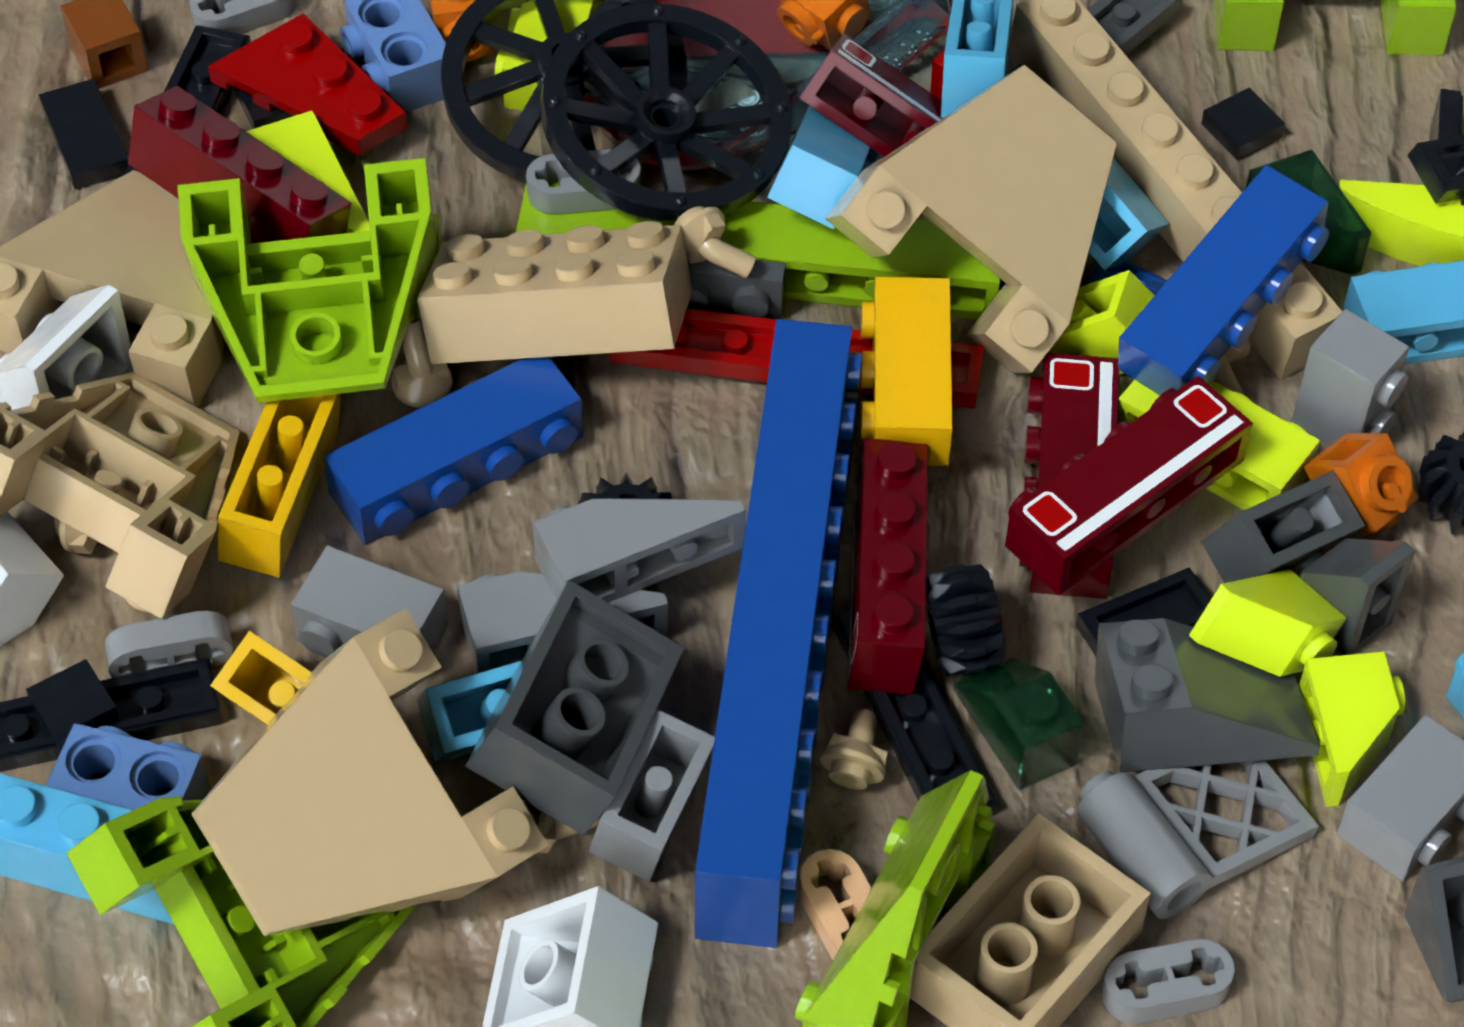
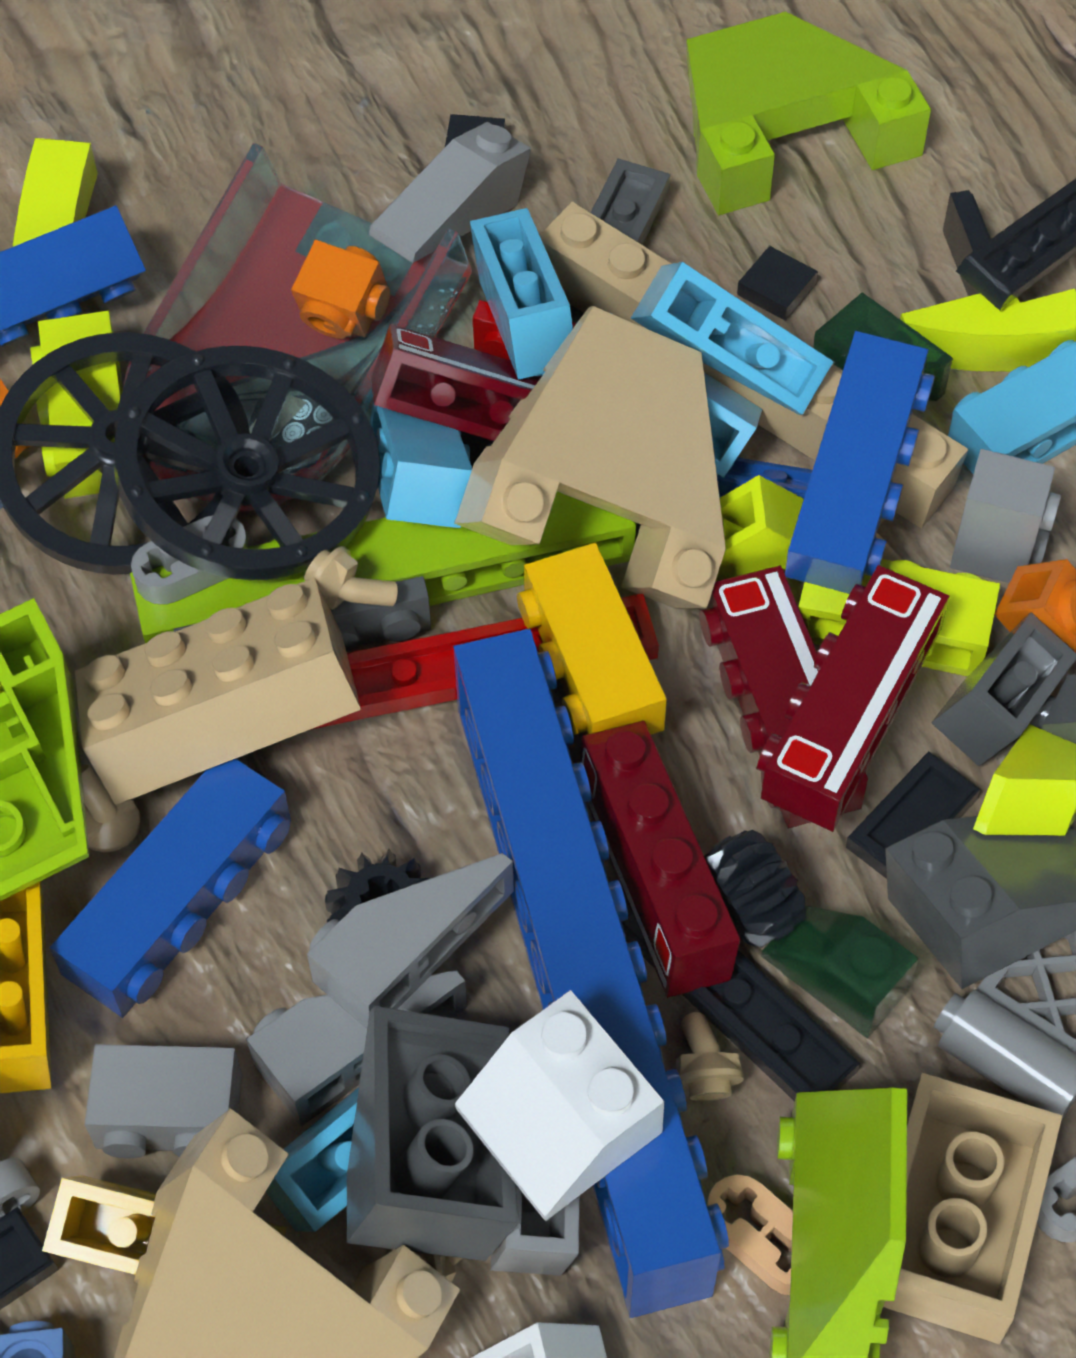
camera: 20 degrees left, 5 degrees up
(691, 709) = (561, 1105): none -> white slope
(1155, 141) = (732, 336): none -> medium azure slope

